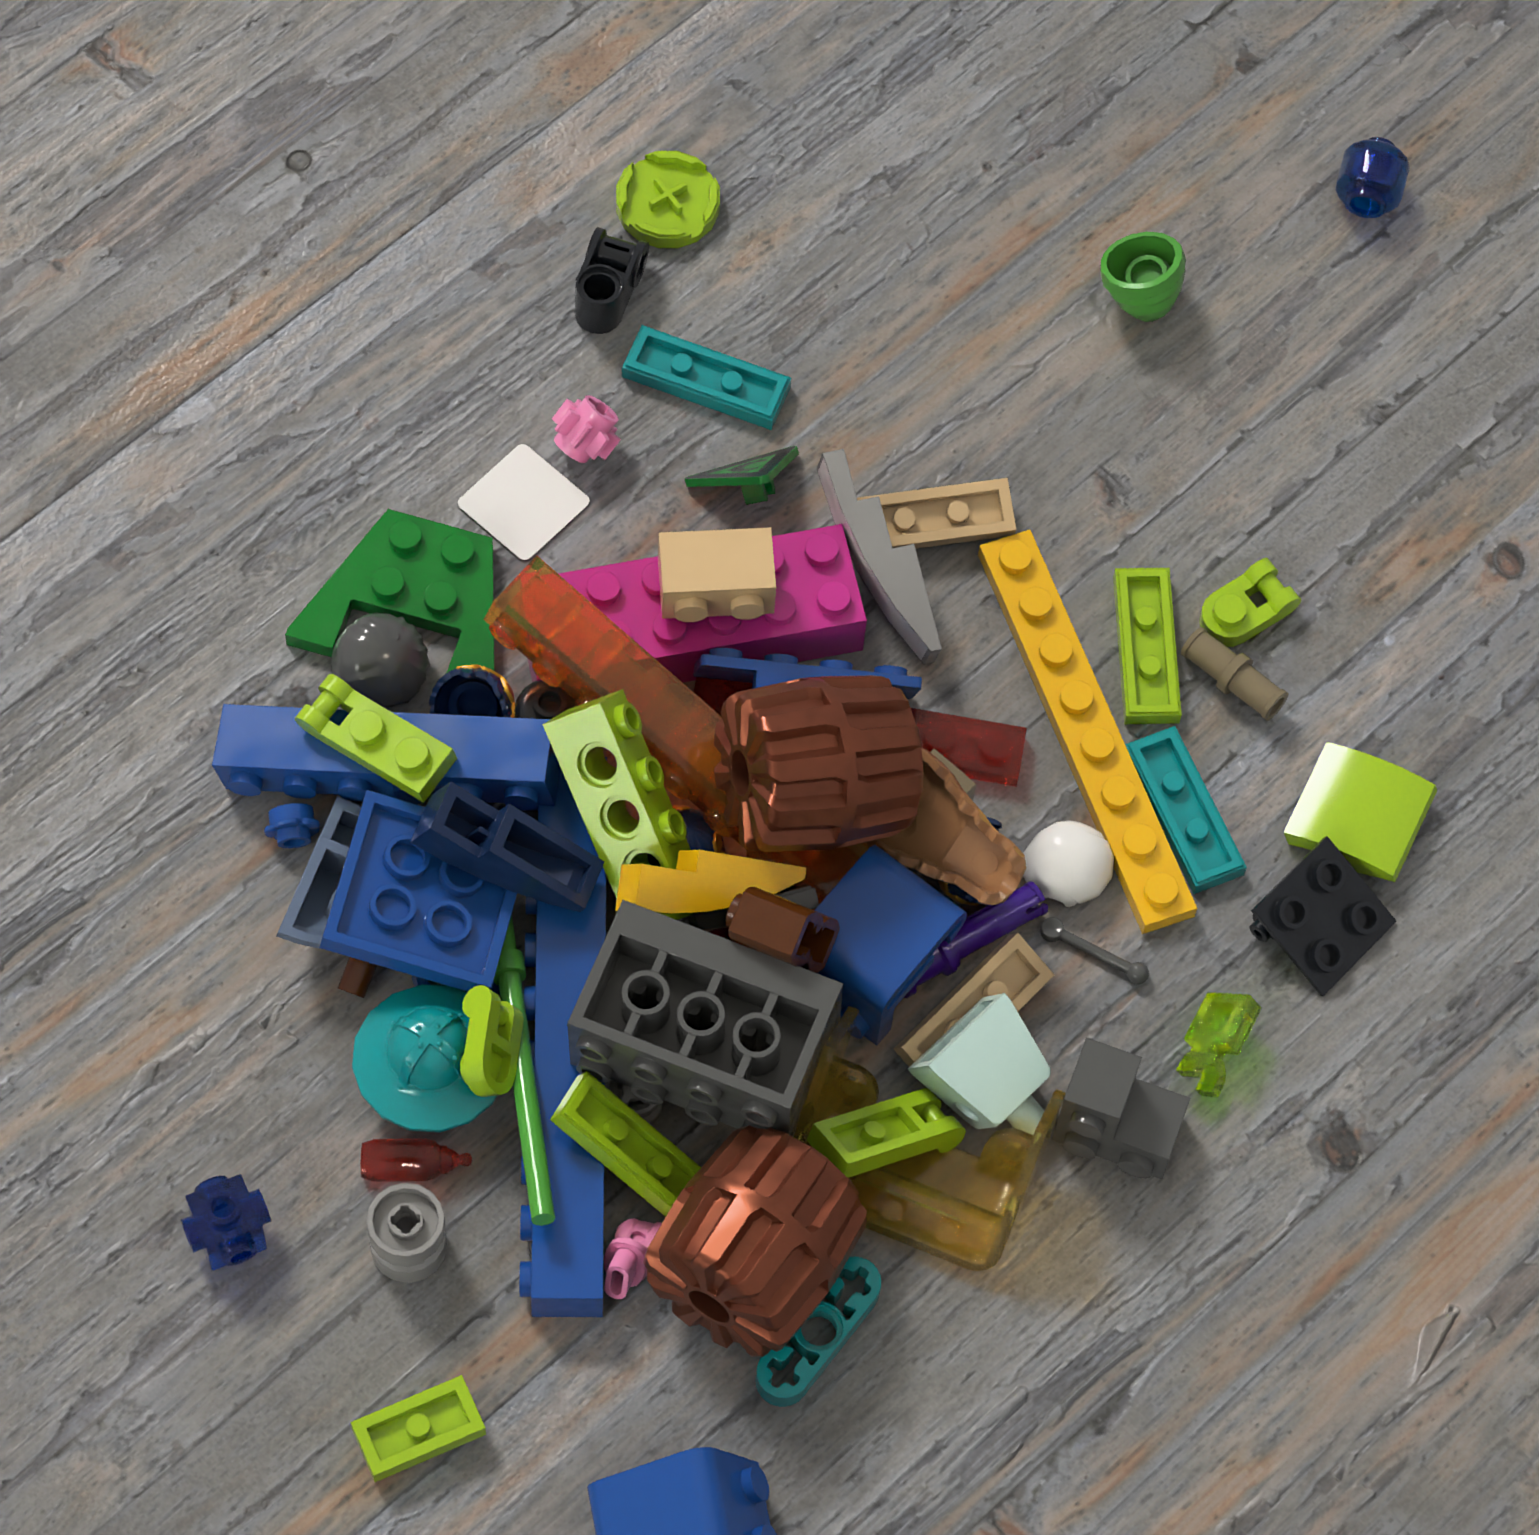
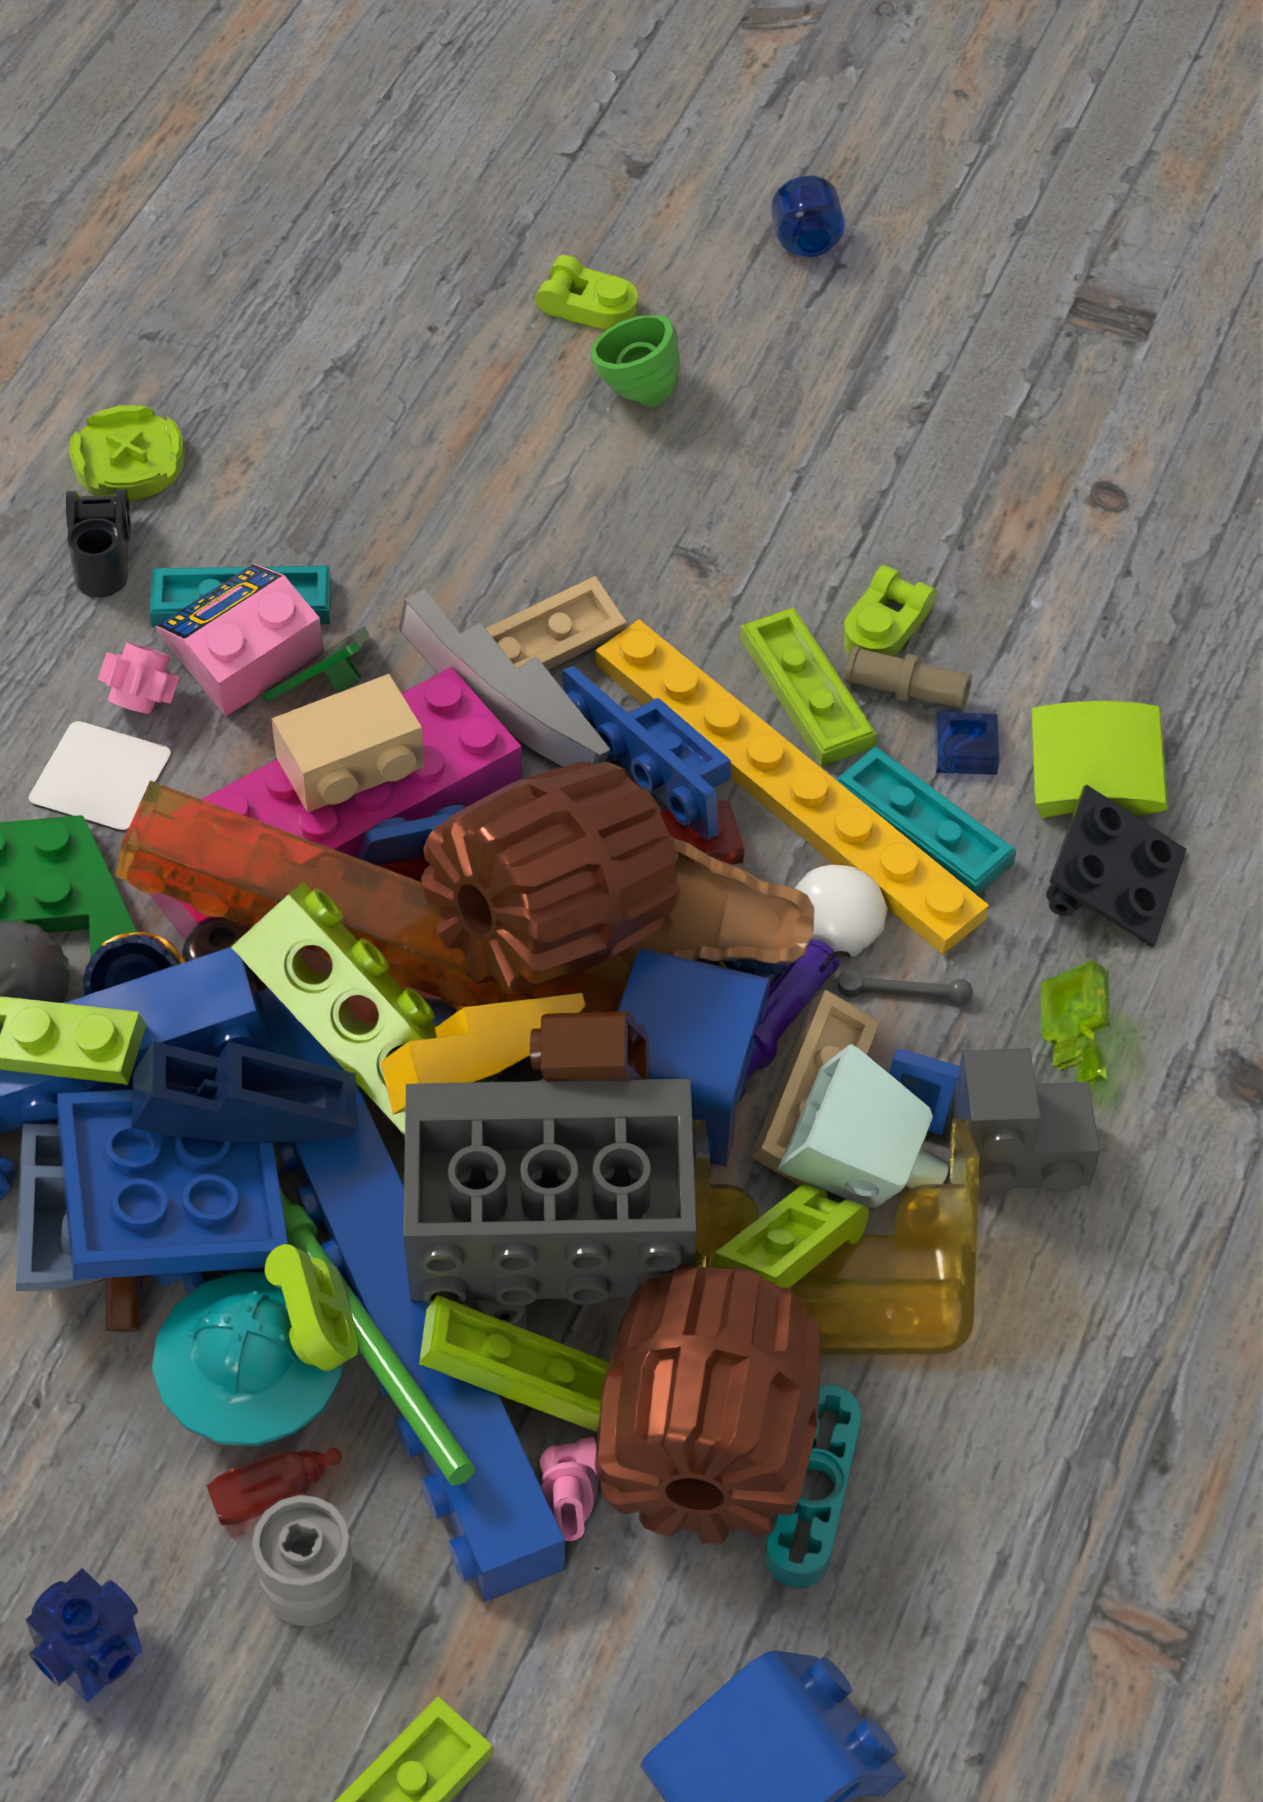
camera: 20 degrees left, 10 degrees down
(687, 421) = (244, 636): none -> bright pink slope
(987, 662) = (658, 751): none -> blue bracket
(1059, 1044) = (930, 1081): none -> blue tile
(1150, 199) = (601, 298): none -> lime plate
(1257, 751) = (966, 743): none -> clear blue tile

